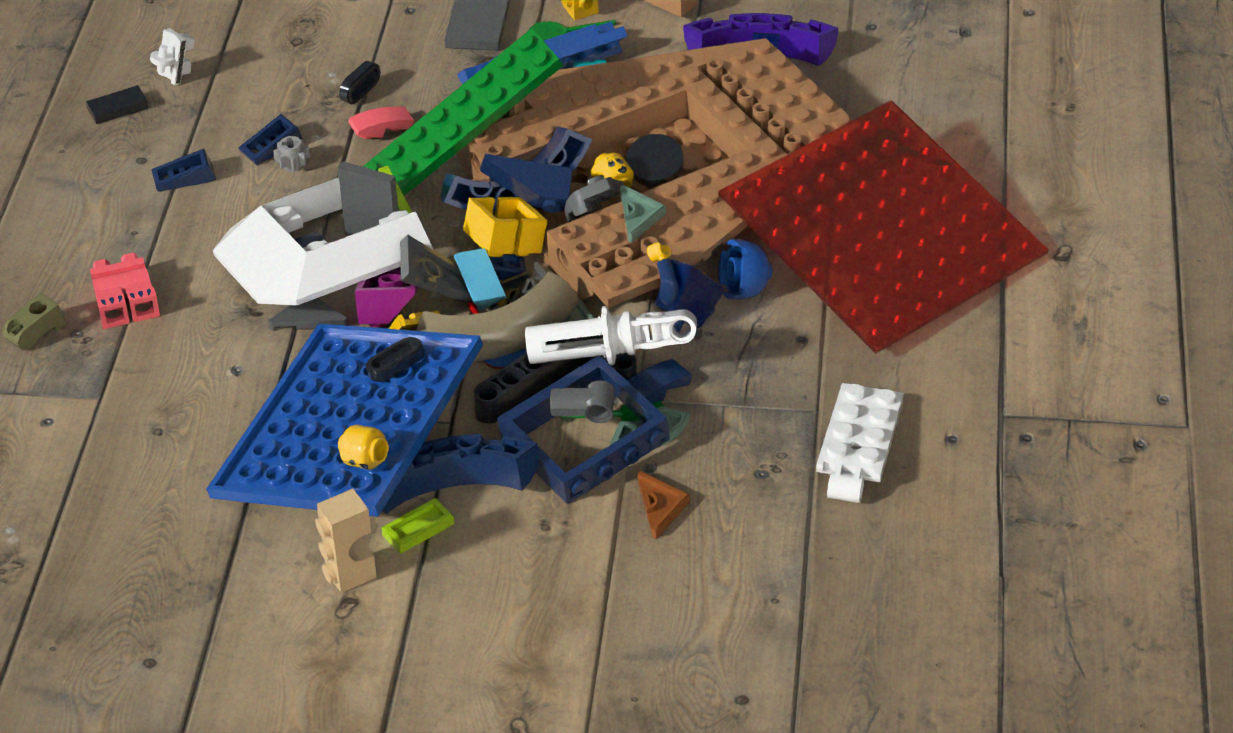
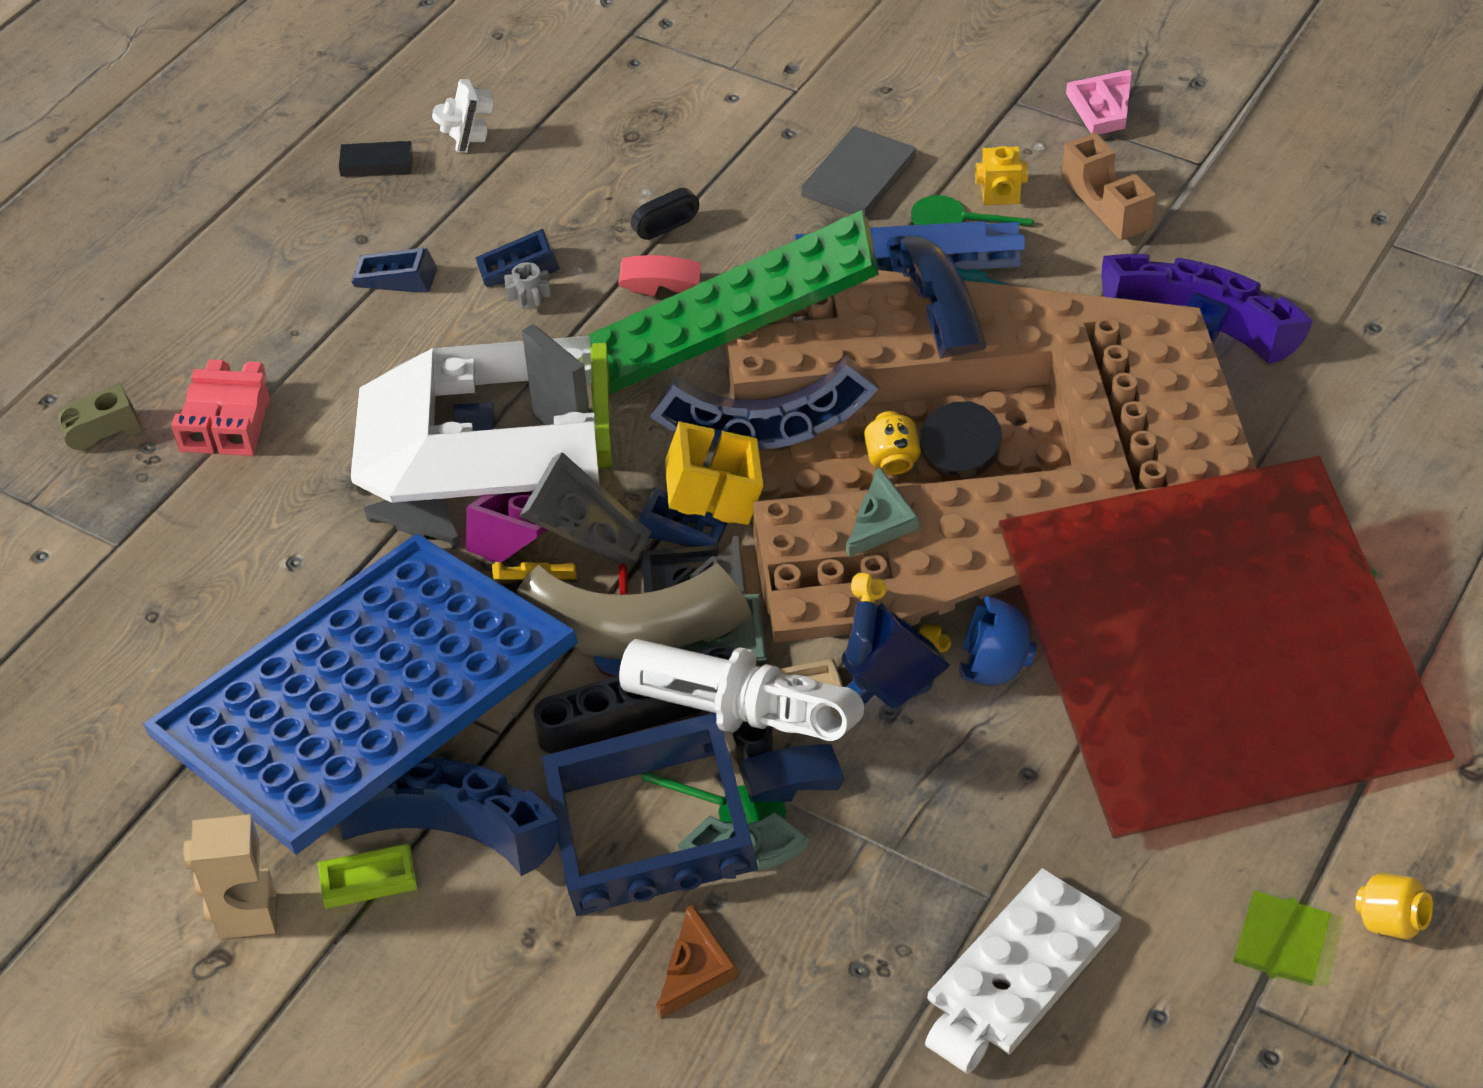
camera: 25 degrees right, 5 degrees up
(363, 447) = (322, 747): yellow head -> none
(395, 359) = (455, 625): black tile -> none
(480, 277) = (641, 538): medium azure slope -> none
(535, 182) = (776, 428): dark blue slope -> none
(589, 198) = (841, 471): dark grey slope -> none
(593, 402) = (662, 783): dark grey piece -> none
(610, 77) = (938, 279): none -> dark blue brick
(1000, 375) = (1282, 938): none -> clear neon green piece
(1057, 335) = (1394, 905): none -> yellow head

